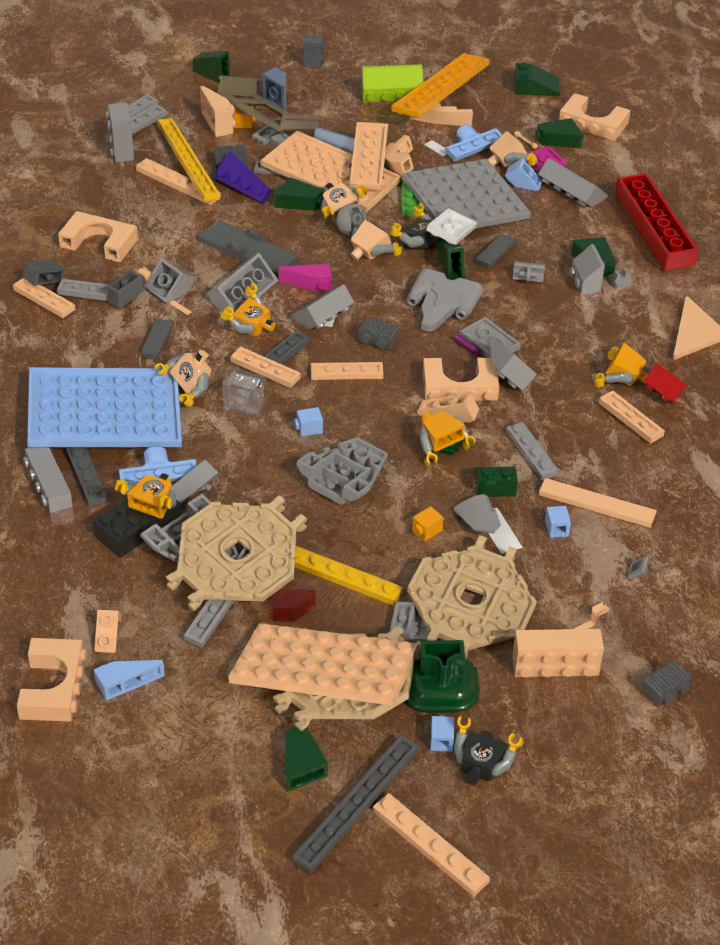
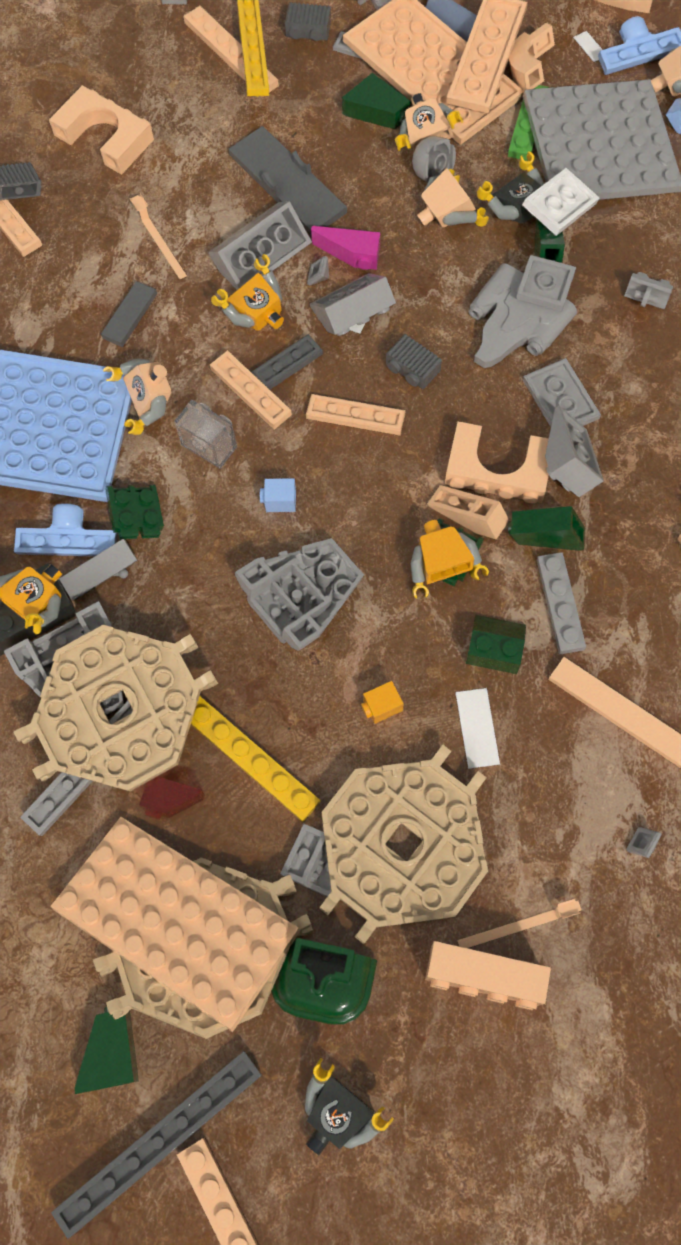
camera: 20 degrees right, 25 degrees up
(83, 289) = (61, 215): light grey plate -> none
(125, 289) = (107, 227): dark grey brick -> none
(168, 281) = (168, 221): light grey slope -> none
(205, 447) = (135, 511): none -> dark green plate
(241, 178) = (310, 61): dark purple wing -> none
(290, 294) = (318, 271): none -> light grey slope
(442, 733) = (298, 1059): light blue brick -> none
(457, 272) = (546, 283): none -> light grey plate
(467, 345) = (528, 402): magenta piece -> none
(478, 514) = (455, 705): light grey panel -> none
(495, 251) = (614, 243): dark grey tile -> none
(508, 408) = (548, 528): none -> dark green slope
(557, 521) = (558, 737): light blue brick -> none
(666, 684) = (622, 1055): dark grey brick -> none

